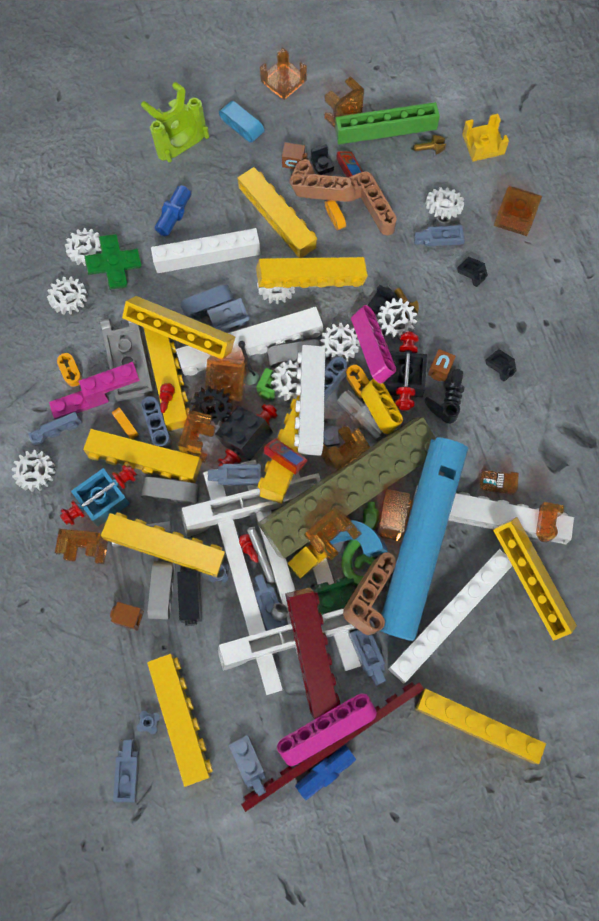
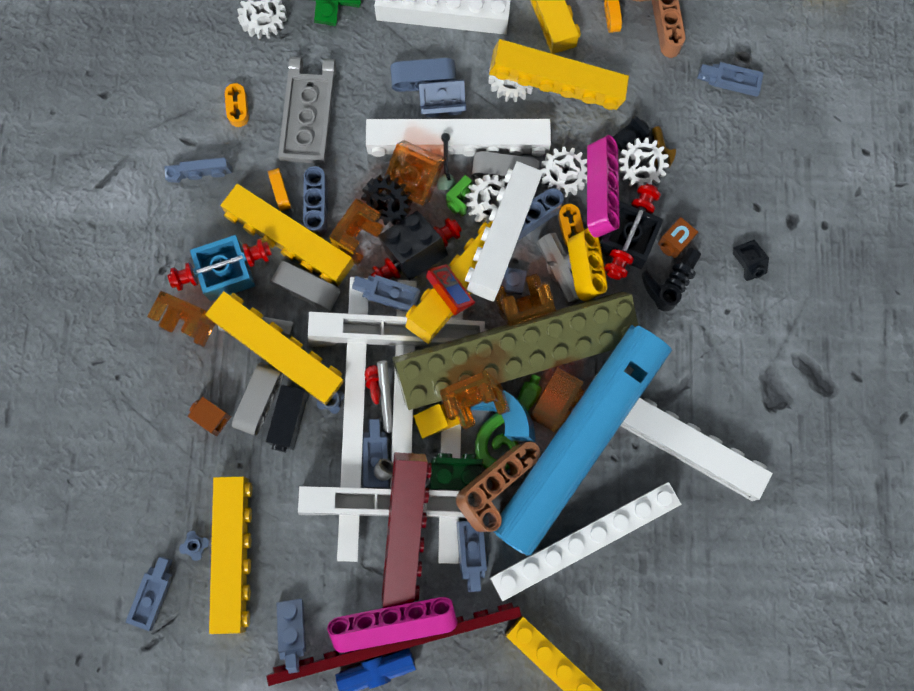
camera: 15 degrees right, 5 degrees up
(41, 464) = (147, 209): white gear -> none
(94, 390) = (256, 139): dark pink bracket -> none
(165, 371) = (346, 145): yellow brick -> none
(166, 394) = (336, 171): red bar -> none
(178, 327) = (377, 93): yellow brick -> none
(444, 203) = (751, 38): white gear -> none
(473, 269) = (758, 132): black bracket -> none
(499, 482) = (697, 401): clear orange leg -> none
(517, 210) = (838, 75): clear orange brick -> none
(535, 579) = (699, 531): yellow brick -> none
(547, 519) = (737, 468): clear orange leg -> none

